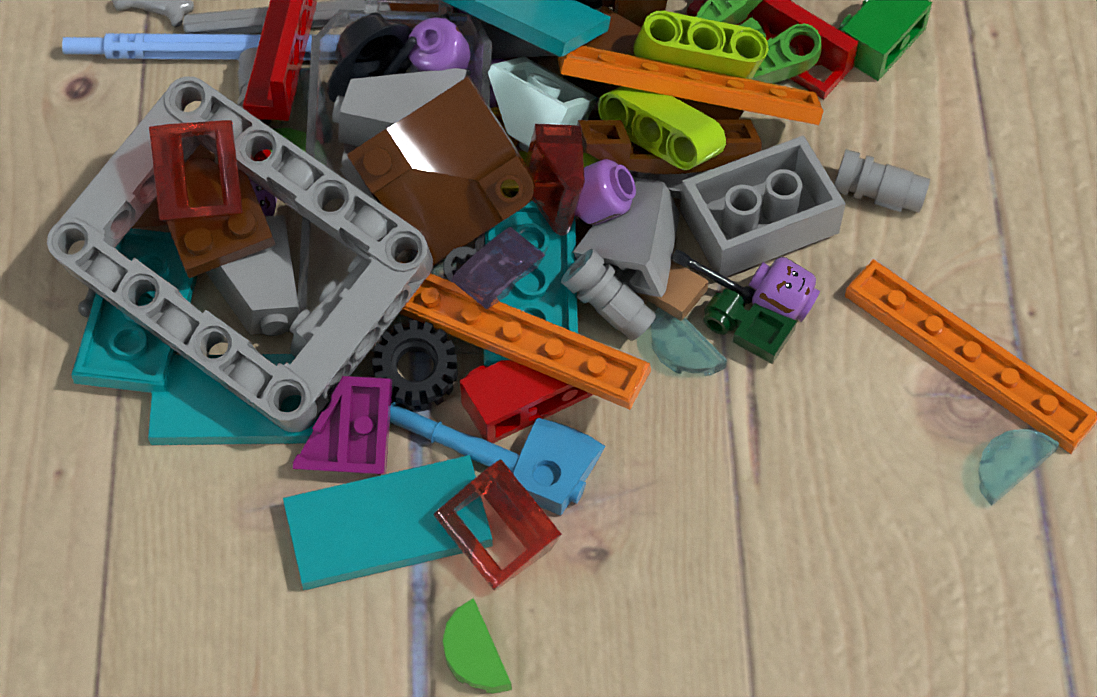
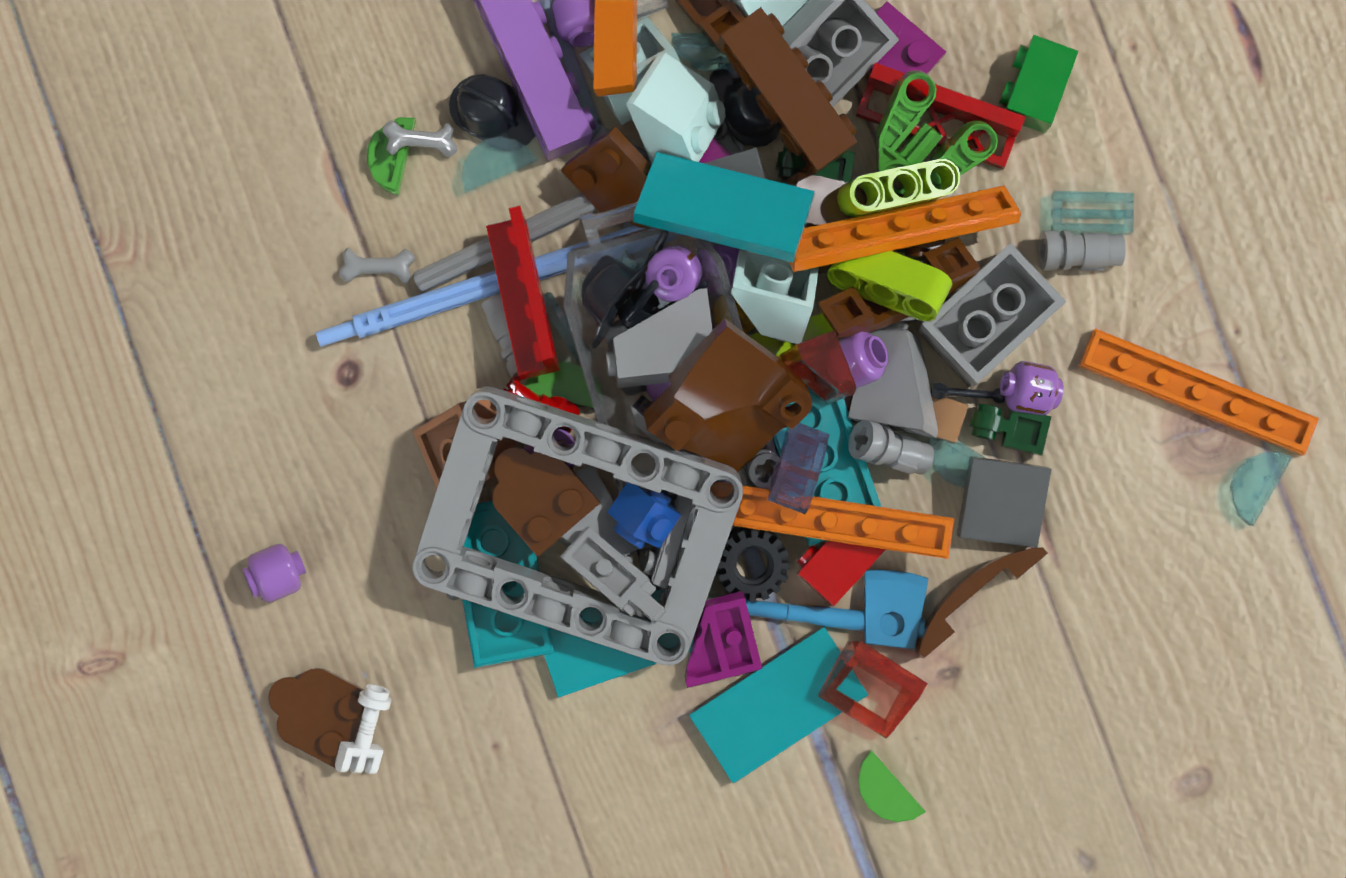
camera: 15 degrees left, 25 degrees up
(171, 175) = (488, 468): clear red tile -> none
(256, 307) = (612, 575): none -> light grey hinge
(315, 264) = (643, 515): none -> blue brick
(705, 451) = (936, 627): none -> reddish brown slope
(715, 386) = (1003, 502): none -> dark grey tile
(907, 148) = (1127, 214): none -> clear light blue tile

